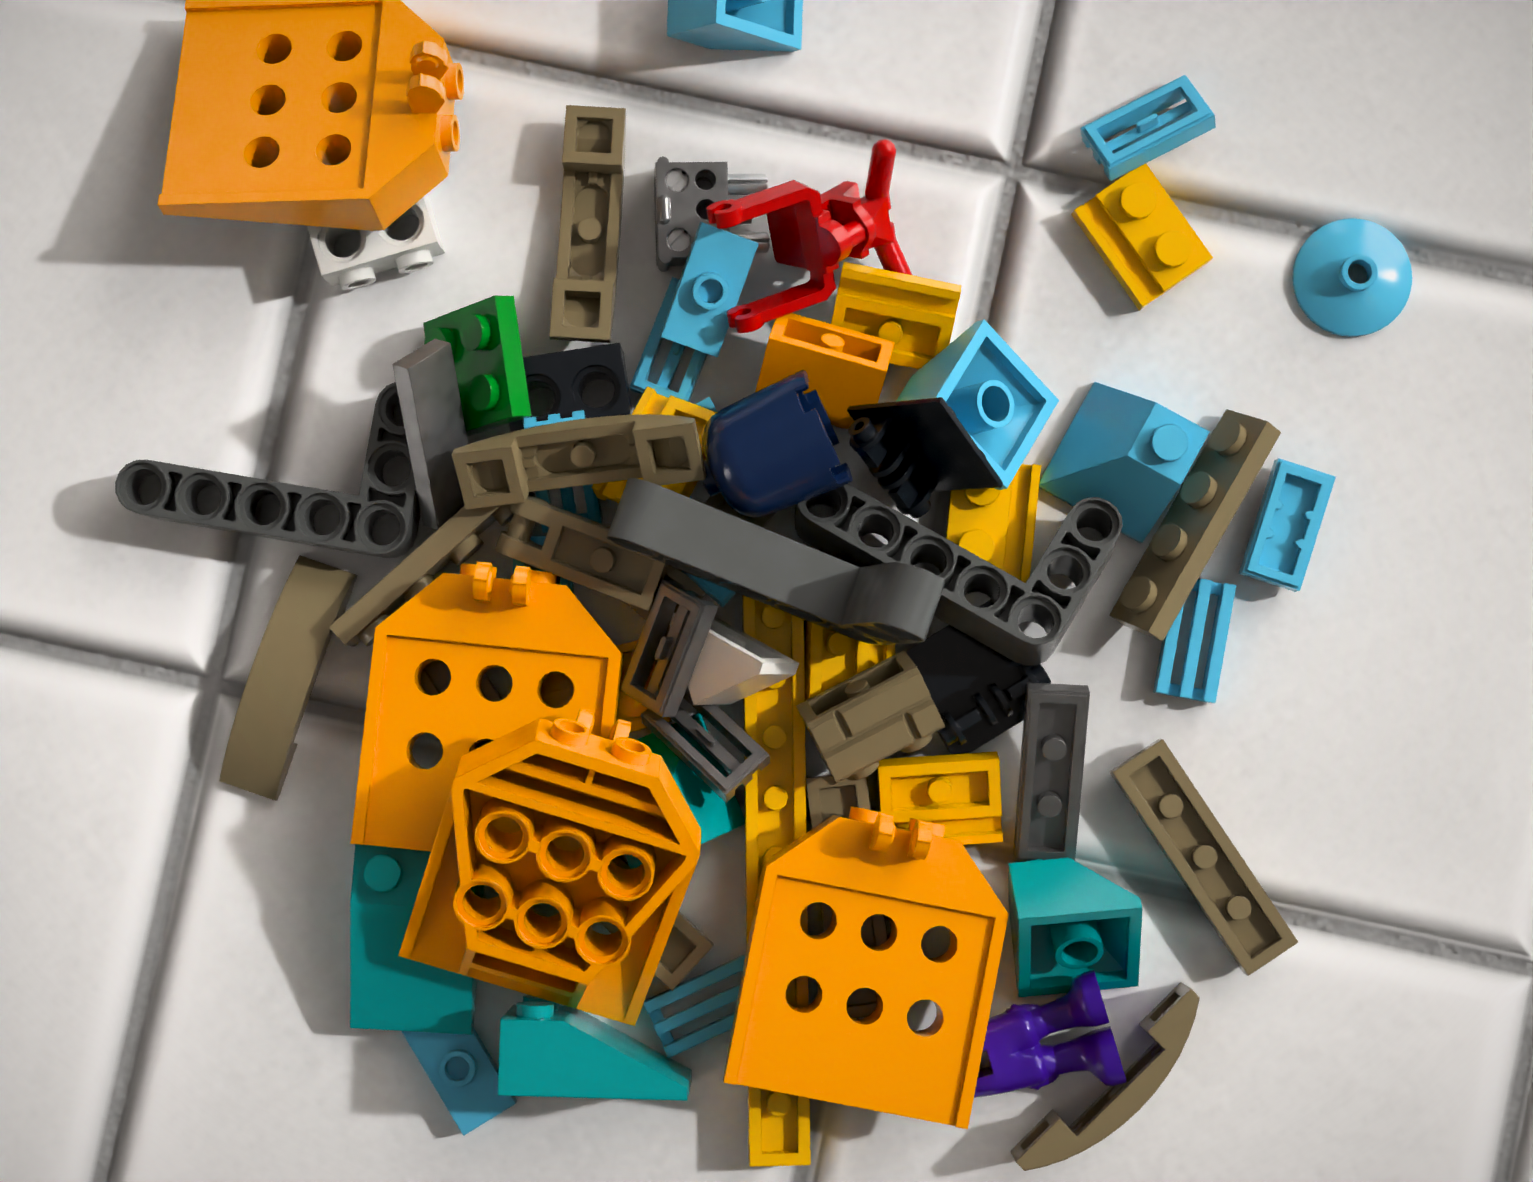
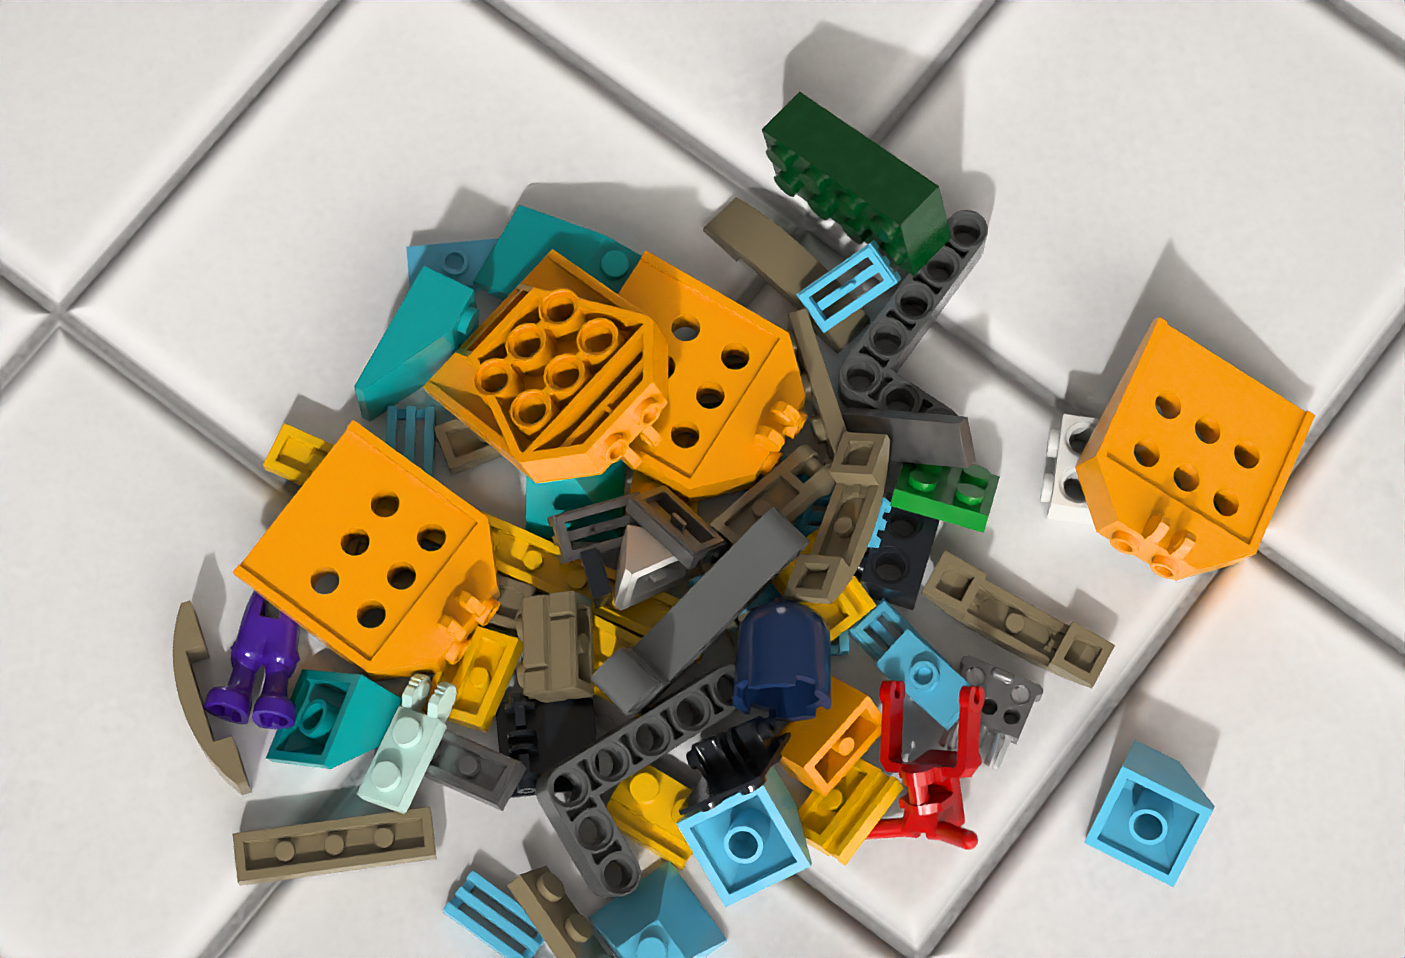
camera: 110 degrees right, 15 degrees down
(149, 636) = (856, 184): none -> dark green brick
(242, 560) = (880, 265): none -> medium azure tile
(770, 710) = (597, 577): none -> black tile
(1061, 828) = (408, 745): none -> light aqua hinge

